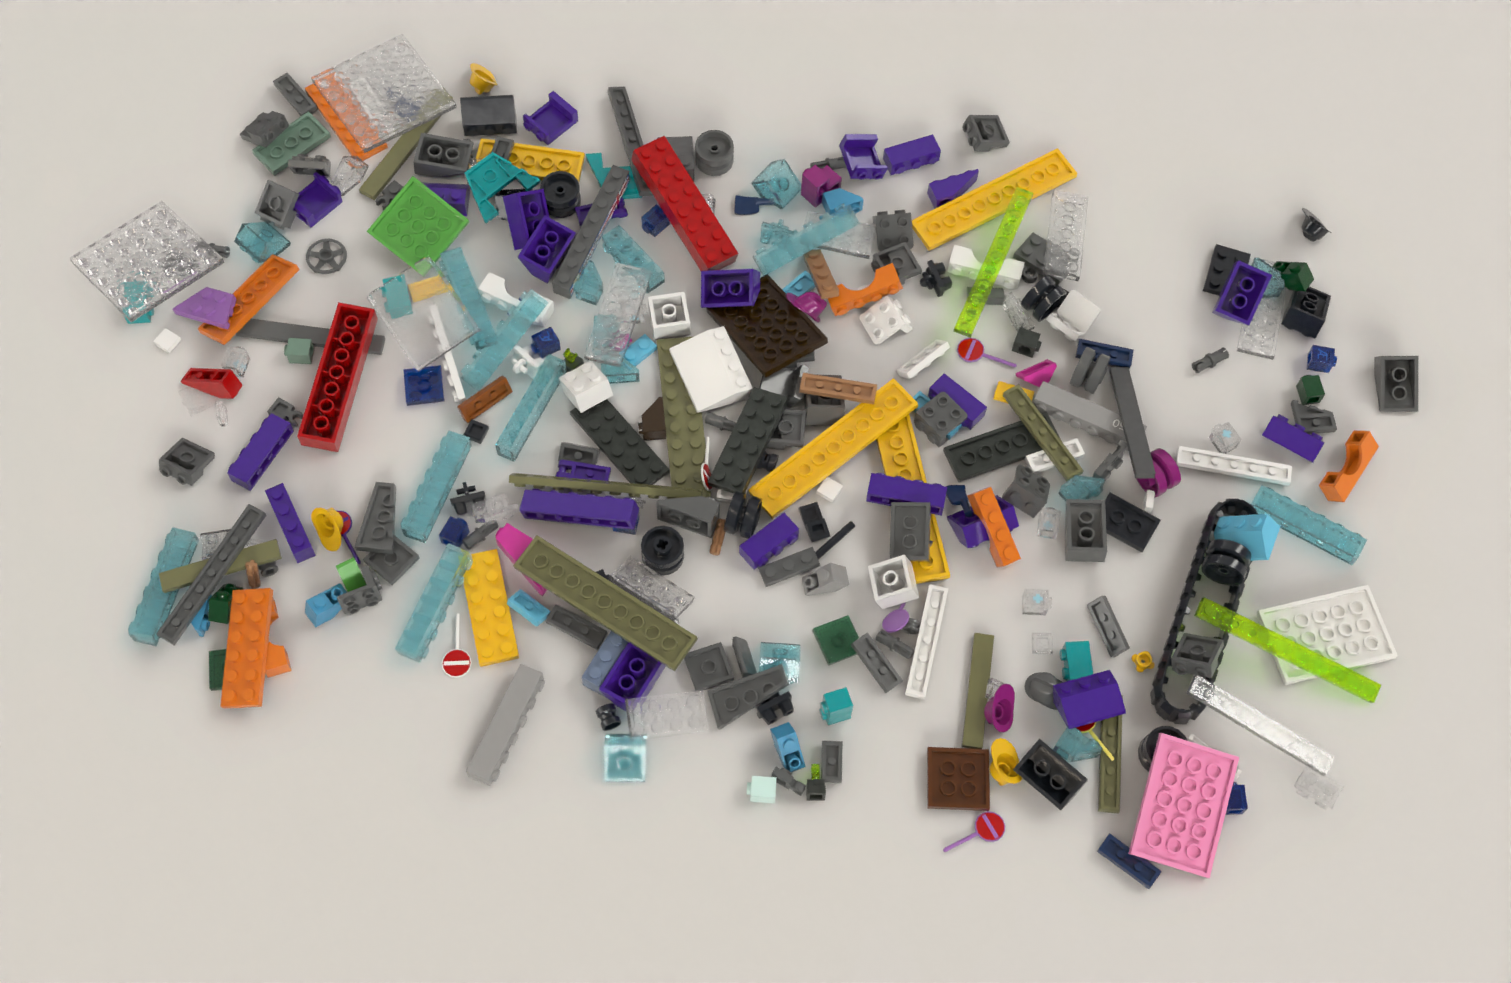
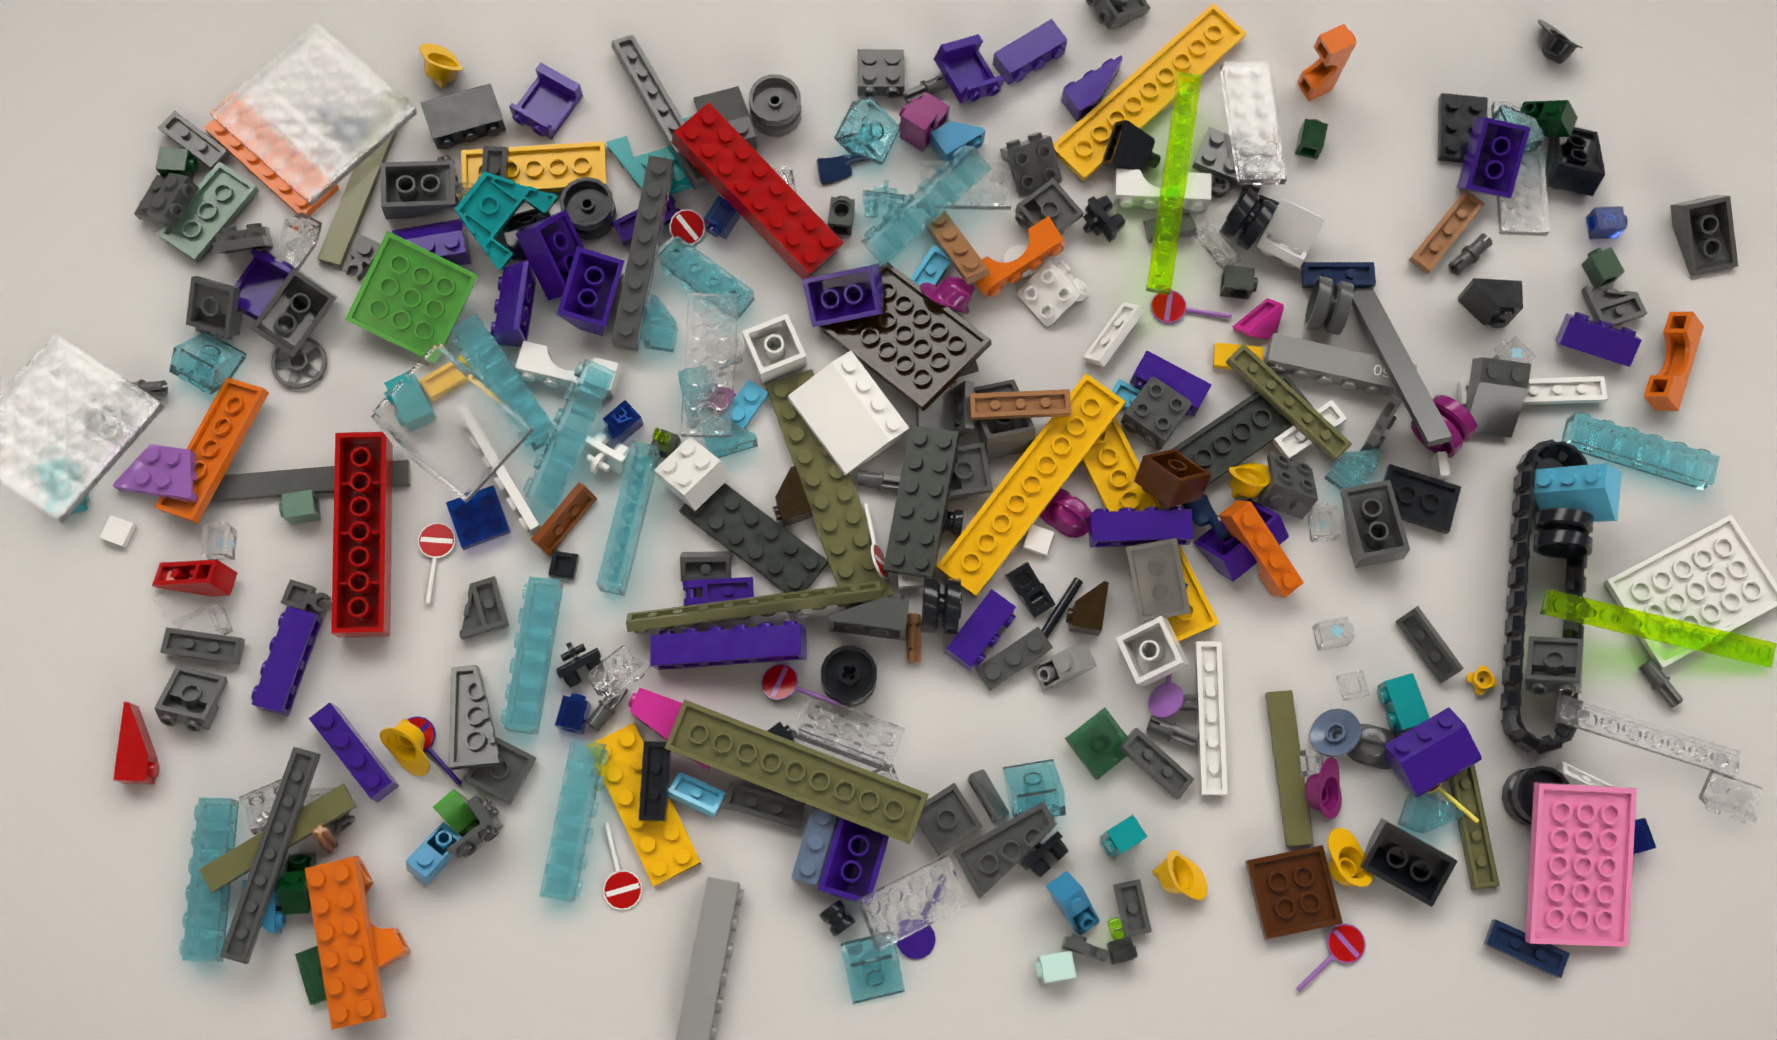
camera: 15 degrees left, 10 degrees up
(136, 490) = (135, 752): none -> red slope
(204, 429) = (202, 646): none -> dark grey plate
(279, 104) = (176, 161): none -> brick
(332, 219) = (294, 312): none -> dark grey slope
(388, 396) = (435, 542): none -> piece
(410, 448) = (484, 609): none -> dark grey wing
(490, 247) = (514, 305): none -> dark purple slope
(500, 590) = (654, 782): none -> black plate
(614, 544) = (782, 681): none -> piece
(629, 221) = (686, 225): none -> red piece
(663, 748) = (918, 944): none -> dark purple piece
(743, 243) = (844, 224): none -> pearl dark grey brick
(798, 147) = (881, 72): none -> plate
(853, 545) = (1088, 611): none -> dark brown slope
(855, 476) = (1067, 514): none -> magenta piece
(873, 745) = (1181, 875): none -> yellow piece
(939, 463) = (1172, 477): none -> reddish brown brick
(968, 233) = (1130, 148): none -> black torso
(997, 480) = (1248, 480): none -> yellow piece
(1019, 671) = (1331, 724): none -> sand blue dish
(1108, 255) = (1311, 138): none -> dark green brick
(1134, 191) = (1334, 51): none -> orange arch
(1195, 340) = (1446, 231): none -> medium nougat plate
(1202, 459) = (1497, 394): none -> dark grey slope
(1216, 393) = (1493, 300): none -> black slope
(1283, 694) = (1661, 683): none -> dark grey axle

